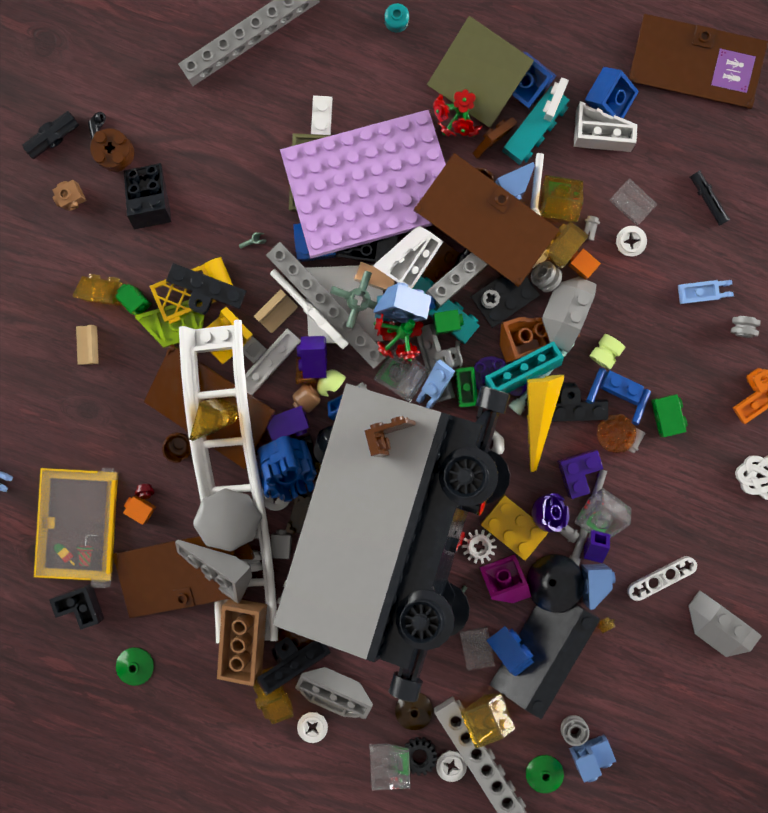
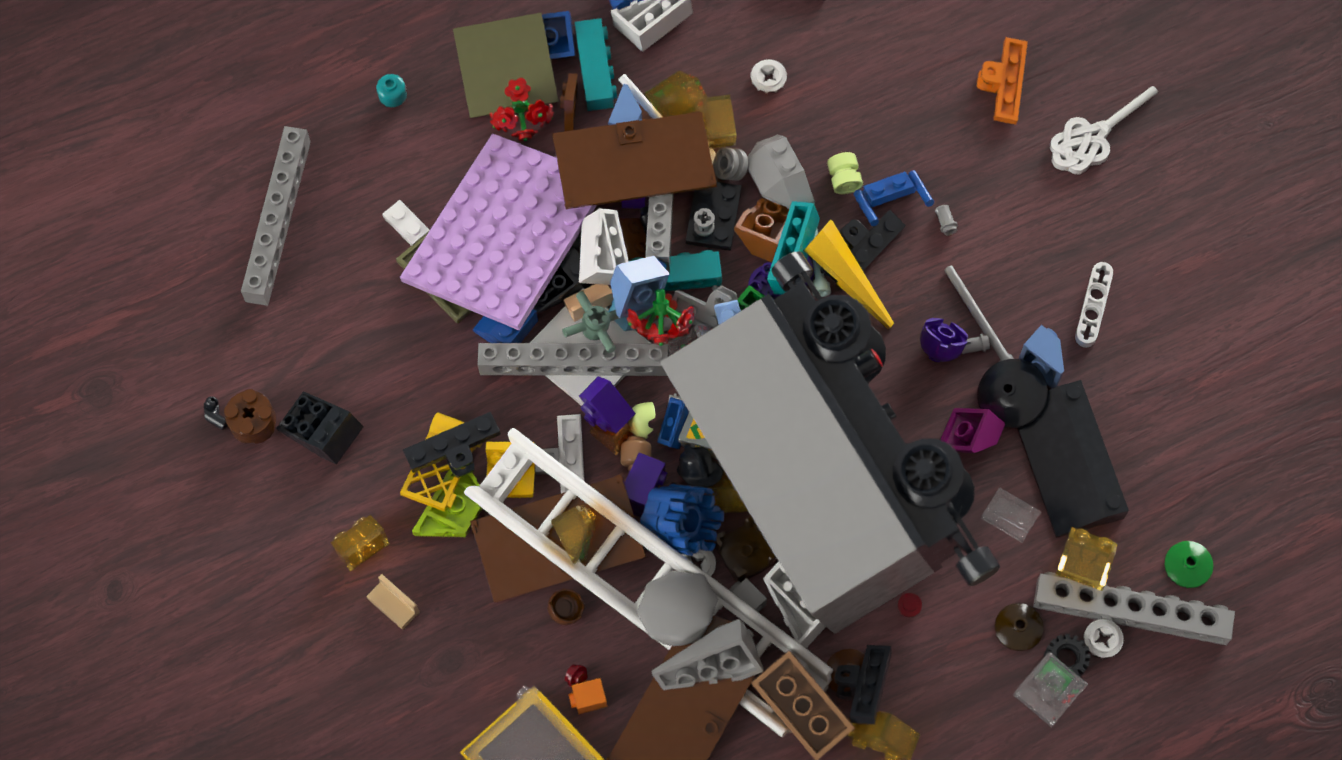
camera: 45 degrees left, 20 degrees down
(50, 135) = (180, 458): black piece -> none
(68, 195) = (249, 490): medium nougat brick -> none
(133, 299) = (396, 517): green brick -> none
(255, 239) = (451, 374): sand green hand -> none
(276, 311) = (532, 412): tan panel -> none
(310, 310) = (575, 370): white piece -> none
(312, 736) = (955, 724): white gear -> none
(335, 693) = (934, 677): light grey wedge -> none
(376, 440) = (729, 352): reddish brown bracket -> none
(447, 322) = (688, 267): green brick -> none
(483, 552) = (918, 422): white gear -> none
(510, 651) = (1038, 479): blue brick -> none
(513, 527) = (928, 386): yellow plate -> none
(557, 91) = (592, 31): white plate -> none
(574, 470) = (925, 289): dark purple brick -> none
(581, 736) = (1171, 487): light grey wheel -> none
(583, 263) = (750, 127): orange brick -> none
(591, 226) = (721, 89): light grey pin -> none
(591, 757) = (1208, 503): medium blue brick -> none
(596, 546) = (1011, 328): dark purple brick -> none
(604, 514) = (989, 299): clear slope -> none
(606, 624) = (1093, 386): clear yellow plate -> none
(616, 433) = (925, 227): clear orange tile -> none
(633, 202) = (737, 46): clear plate -> none
(669, 415) = (950, 173): green brick -> none
(703, 291) = (869, 57): light blue hinge -> none
(721, 627) = (1185, 291): light grey wedge -> none
(745, 326) = (931, 49): light grey wheel -> none

